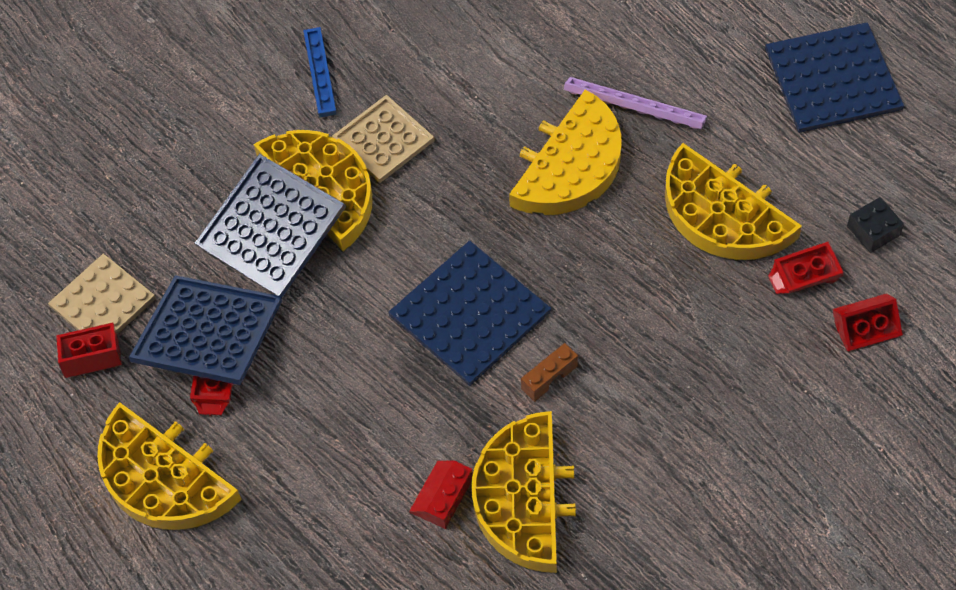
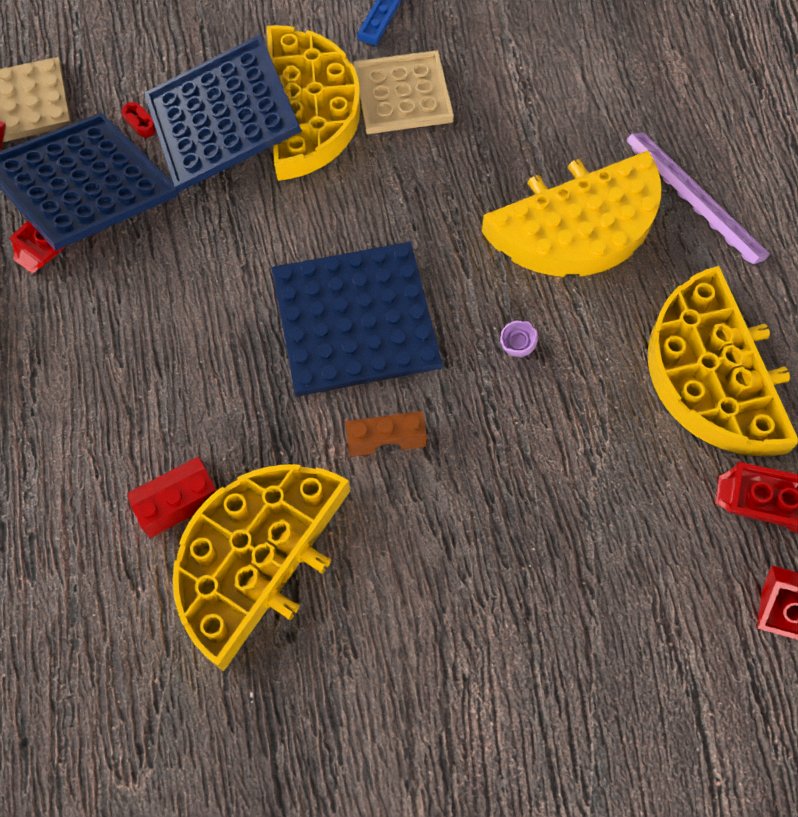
camera: 30 degrees right, 5 degrees up
(204, 265) = (136, 121): none -> red beam
(588, 262) = (519, 338): none -> lavender hair

